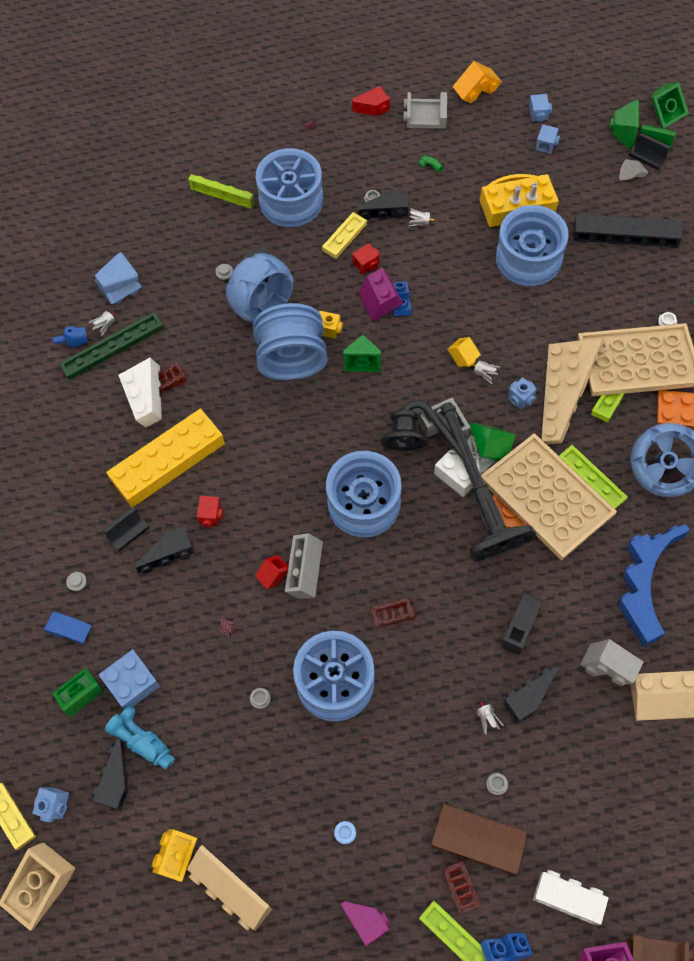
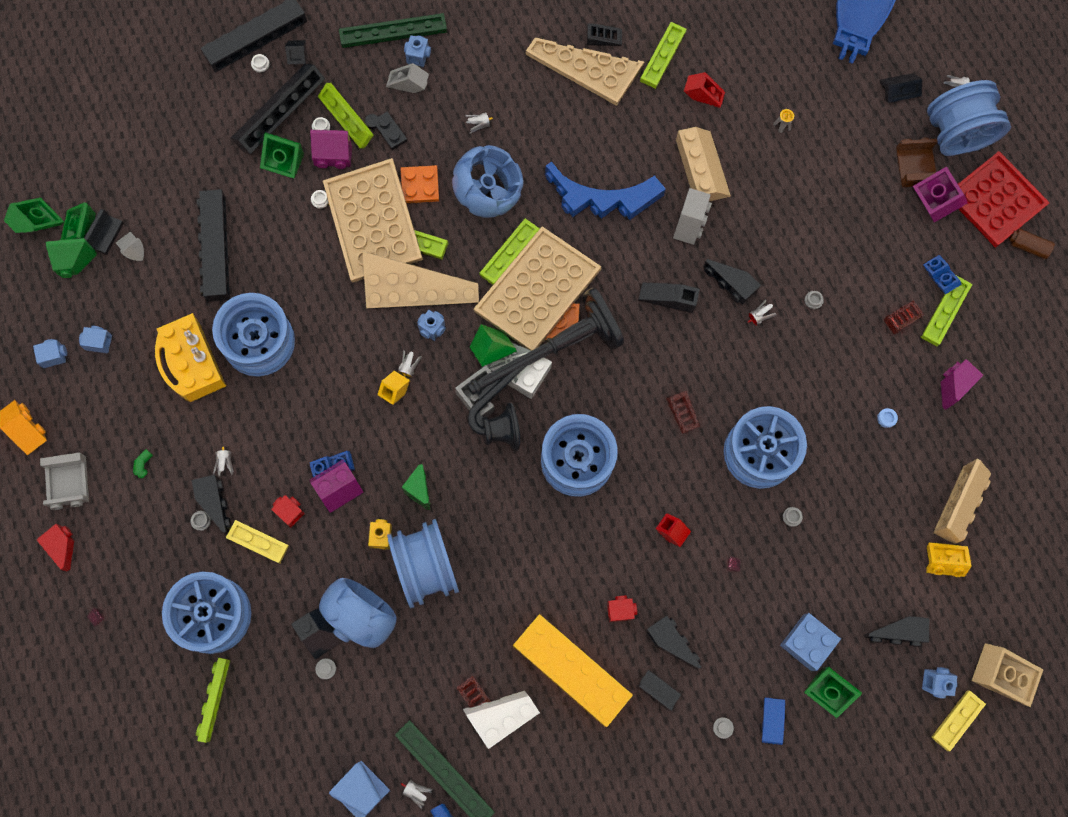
camera: 110 degrees left, 10 degrees up
(139, 741) = (863, 607): dark azure piece -> none
(304, 566) = (661, 501): light grey brick -> none
(479, 839) = (863, 307): reddish brown slope -> none
(571, 897) = (890, 231): white brick -> none

